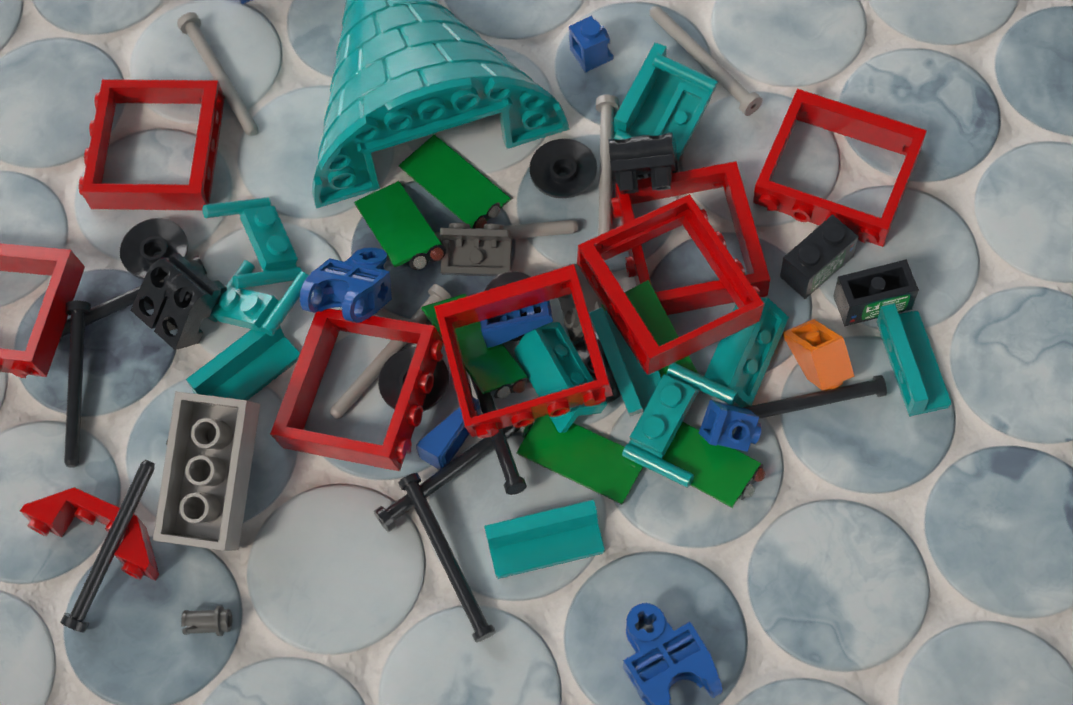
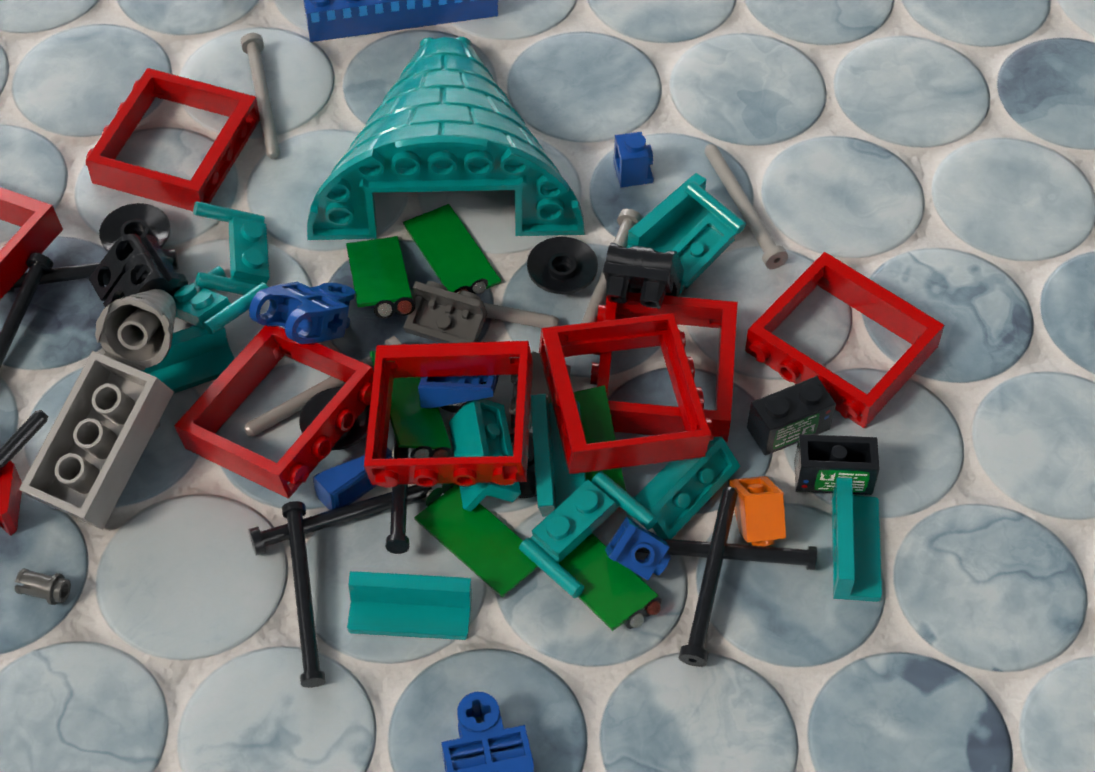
camera: 10 degrees right, 10 degrees down
(206, 353) = (137, 329): none -> light grey cone
(808, 505) = (694, 652): none -> black bar

